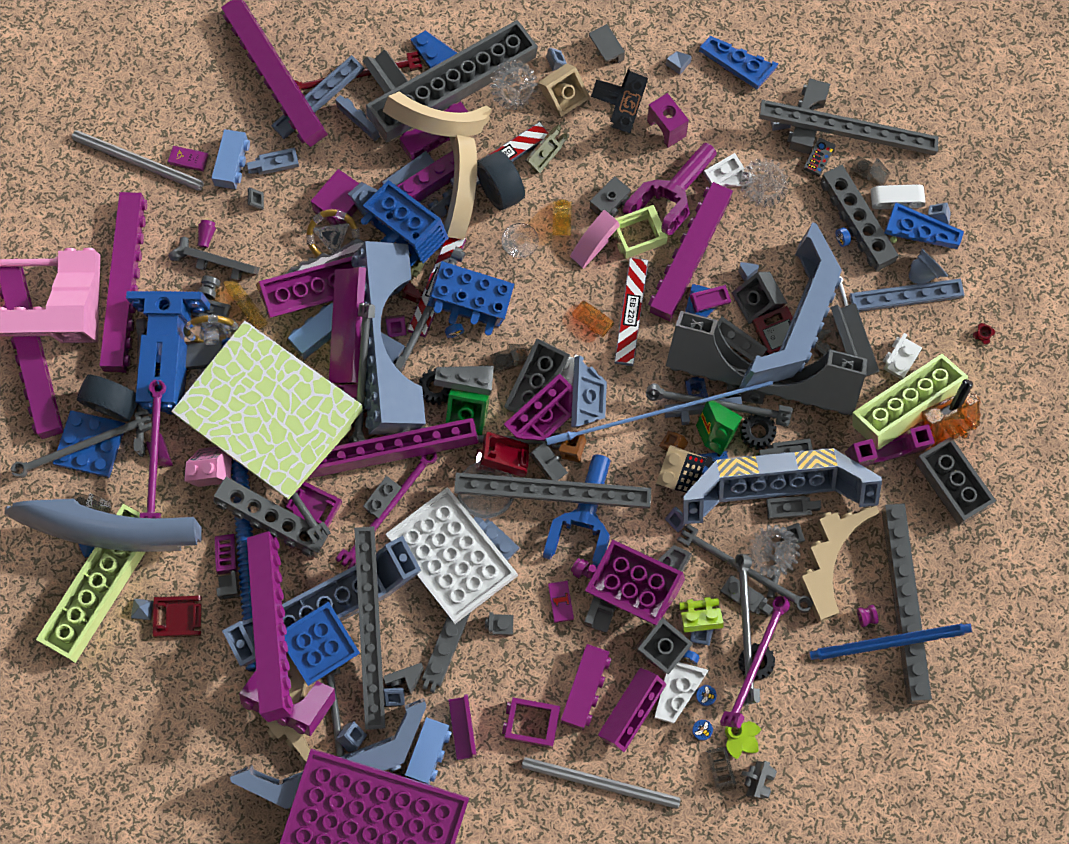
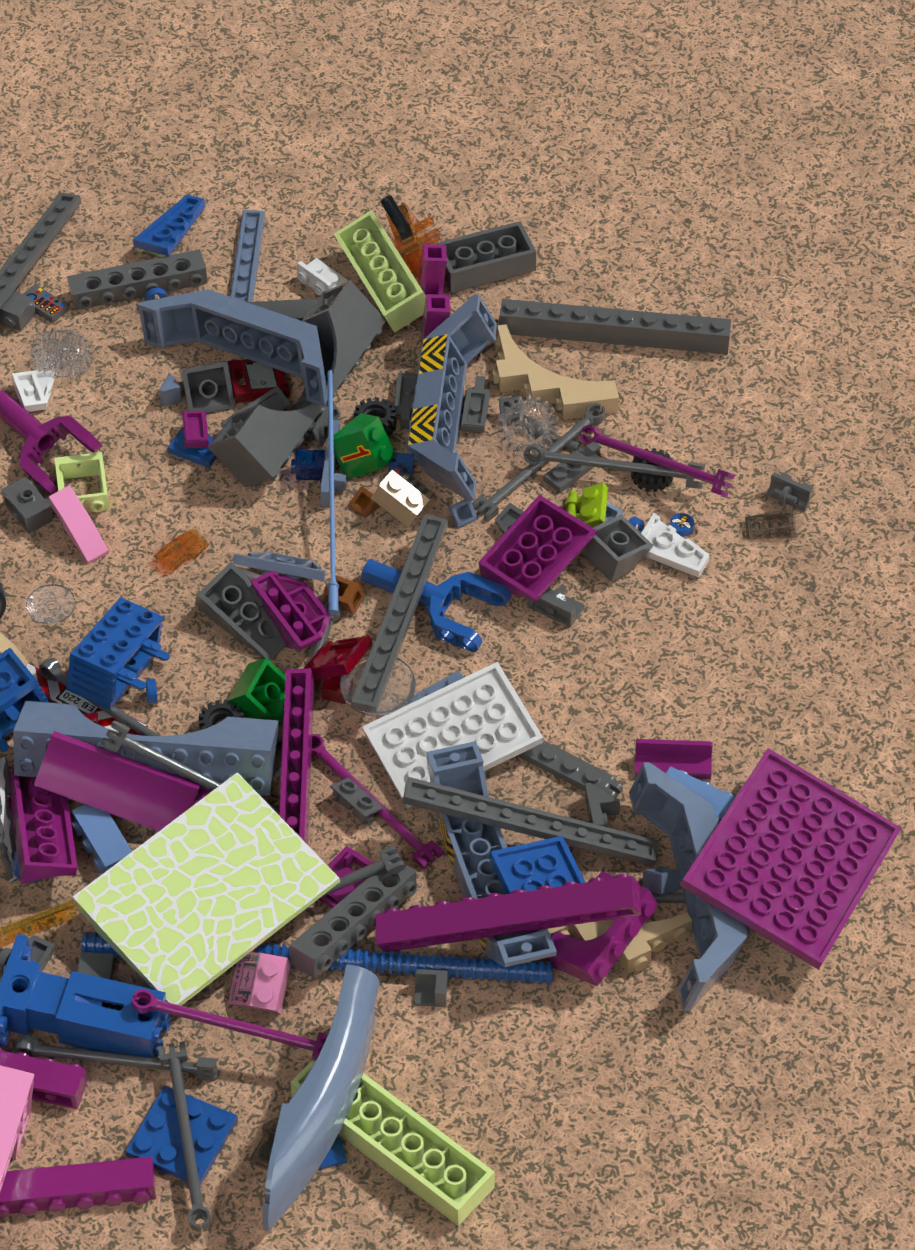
camera: 80 degrees left, 20 degrees down
(107, 397) = (130, 1082): black wheel -> none
(142, 609) = (437, 1099): sand blue slope -> none
(163, 454) = (220, 1045): magenta brick -> none
(181, 616) = (458, 1053): dark red container -> none
(210, 329) = (69, 944): clear piece -> none
(225, 569) = (395, 996): magenta slope -> none
(394, 696) = (619, 822): sand blue slope -> none
(466, 378) = (225, 679): dark grey wing -> none
(499, 624) = (551, 706): dark grey bracket -> none
(510, 358) = (206, 644): clear smoke slope -> none
(548, 462) = (359, 622): dark grey panel -> none
(553, 721) = (688, 671): magenta window -> none
(561, 601) = (536, 642): magenta tile -> none
(562, 217) = (35, 556): clear yellow slope -> none
(583, 567) = (501, 612): magenta piece -> none
(585, 686) = (649, 632): magenta brick -> none
(601, 783) = (765, 640): light grey axle -> none
(631, 312) = (183, 513): tile -> none
(632, 709) = (686, 588): magenta brick -> none
(690, 252) = (128, 440): magenta brick -> none
(702, 730) = (721, 535): tile -> none
(744, 740) = (738, 502): lime plate -> none
(782, 416) = (303, 495): dark grey hinge -> none
(867, 615) = (621, 363): magenta wheel -> none
(870, 172) = (81, 260): clear smoke slope -> none
(891, 641) = (659, 342): blue piece -> none
(907, 195) = (120, 245): white beam -> none
(925, 269) = (222, 231): sand blue piece -> none
(940, 212) = (154, 210): sand blue slope -> none
(986, 329) = (315, 203): dark red plate -> none

